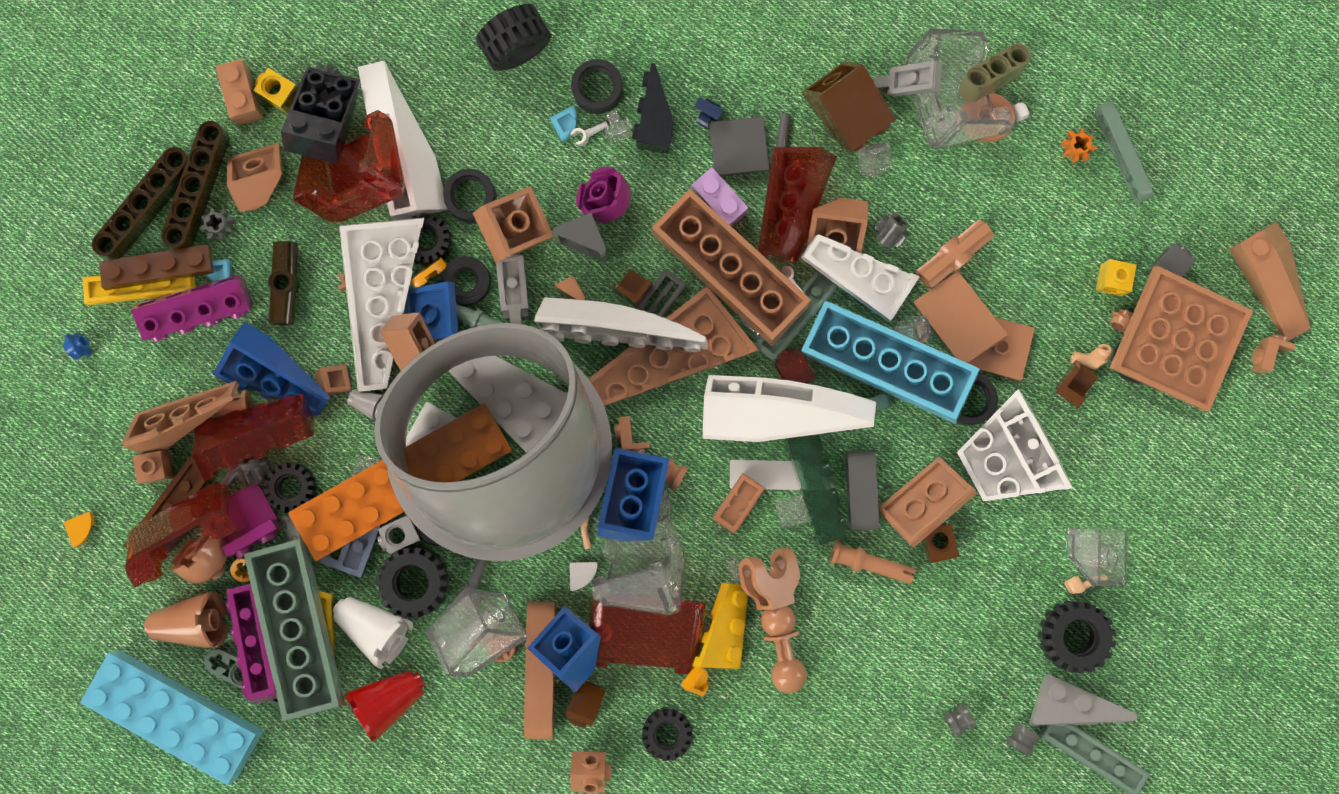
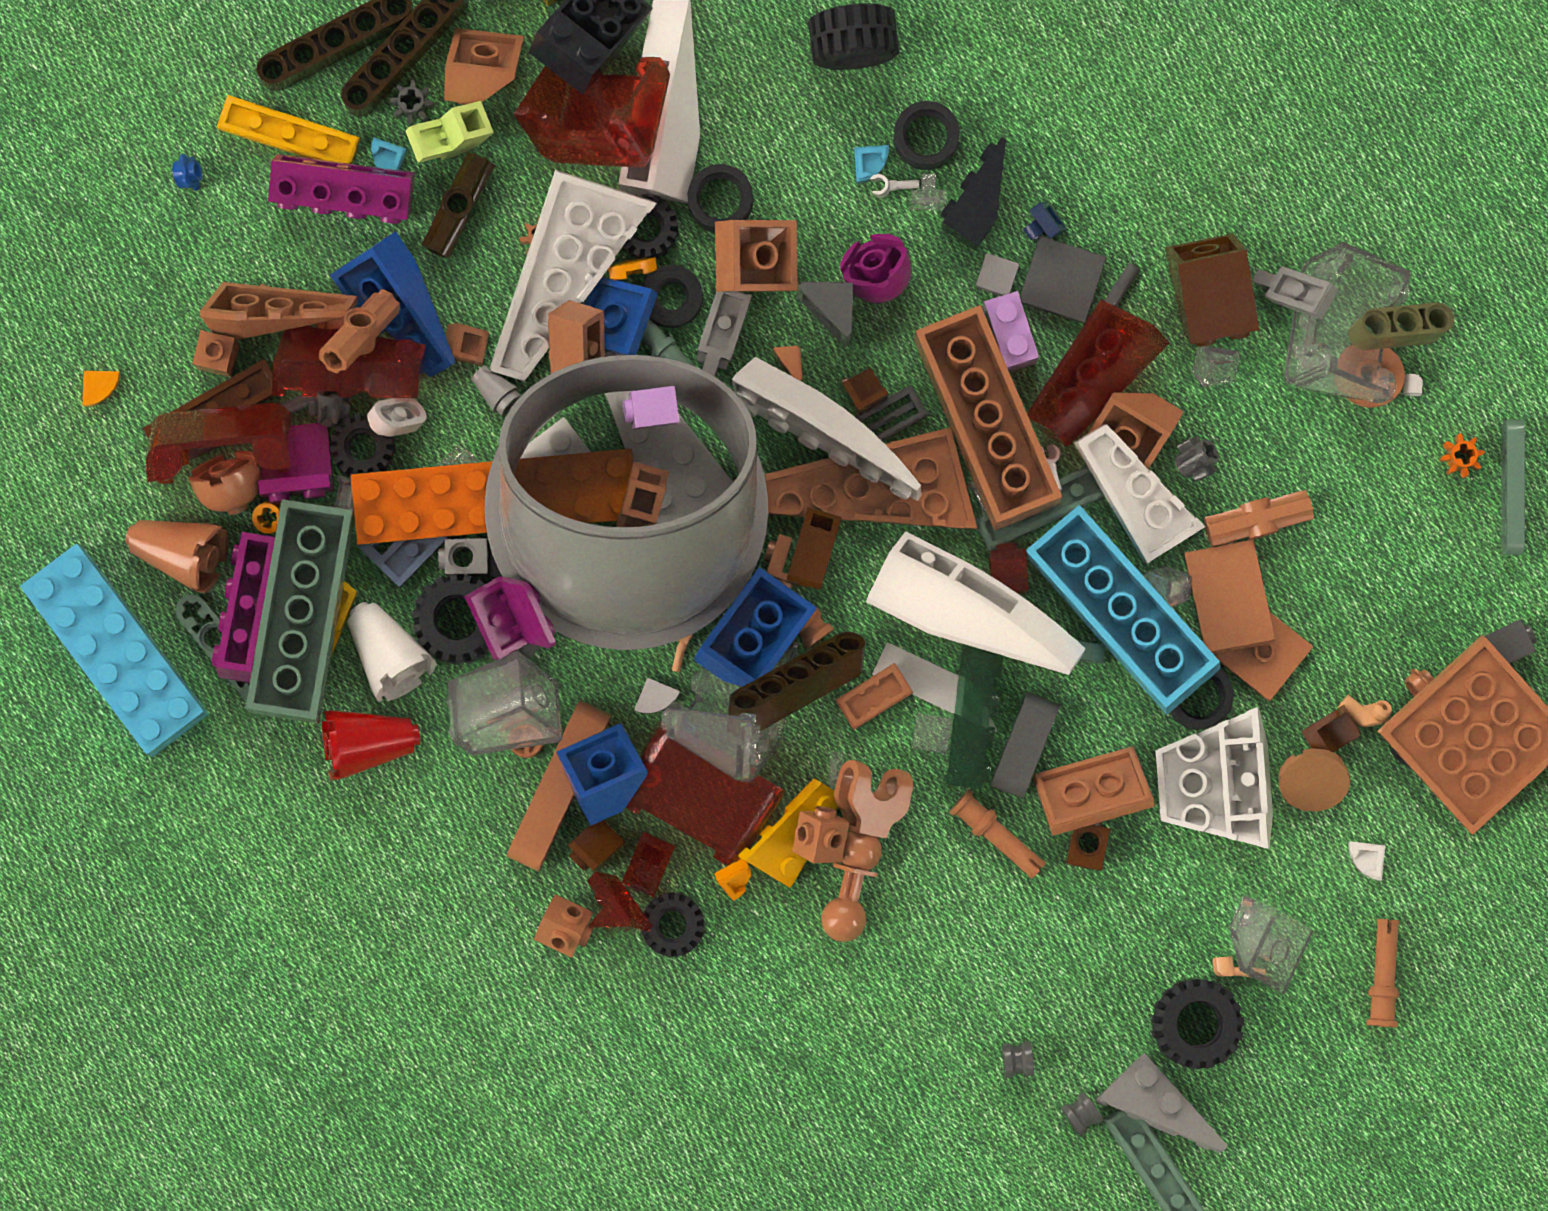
camera: 20 degrees right, 0 degrees up
(156, 267) = (319, 121): reddish brown plate -> none
(247, 406) = (359, 331): none -> nougat piece
(256, 235) = (452, 134): none -> yellowish green brick
(303, 455) = (396, 416): none -> white plate
(448, 566) = (510, 616): none -> magenta bracket
(482, 368) = (651, 408): none -> lavender brick
(505, 437) = (643, 496): none -> nougat brick
(623, 740) = (619, 909): none -> clear red slope
(630, 697) = (648, 864): none -> clear red slope
(648, 417) = (813, 548): none -> reddish brown slope
(680, 518) = (800, 680): none -> dark brown beam
(691, 163) = (997, 275): none -> light grey tile
(746, 624) = (820, 835): none -> nougat brick
(1080, 423) = (1314, 780): none -> medium nougat tile
(1116, 277) = (1434, 630): yellow brick -> none
(1141, 462) = (1368, 858): none -> white tile
(1197, 552) = (1383, 992): none -> nougat pin

